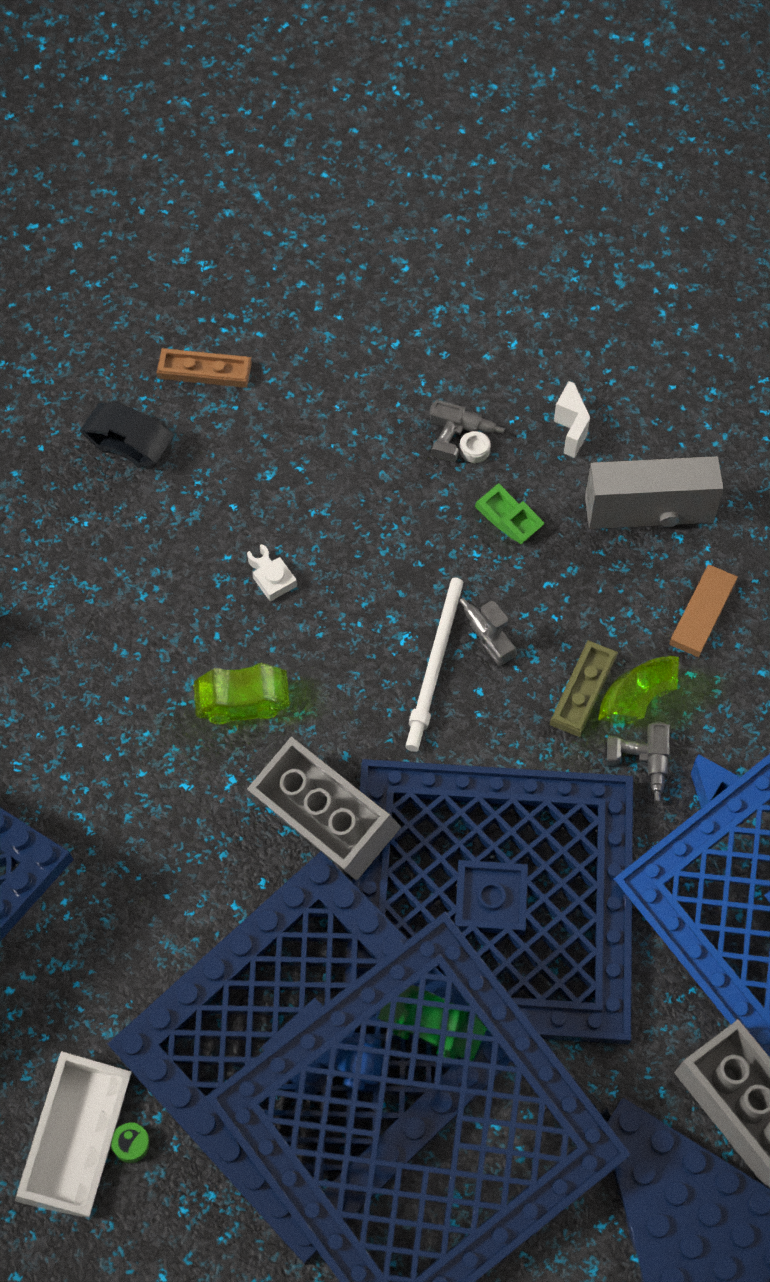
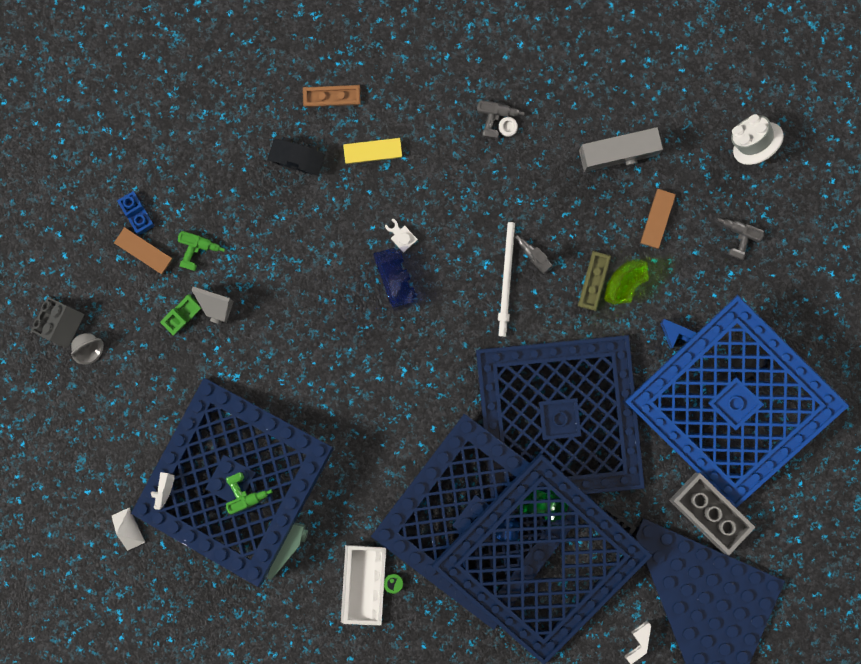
camera: 15 degrees left, 25 degrees up
(241, 693) = (400, 320): clear neon green brick -> none
(243, 620) = (394, 278): none -> clear blue slope
(251, 448) = (372, 151): none -> light yellow tile
(324, 808) = (461, 387): light grey brick -> none
(506, 514) = (535, 172): bright green slope -> none
(572, 413) = (564, 94): white slope -> none
(654, 752) = (638, 316): flat silver piece -> none

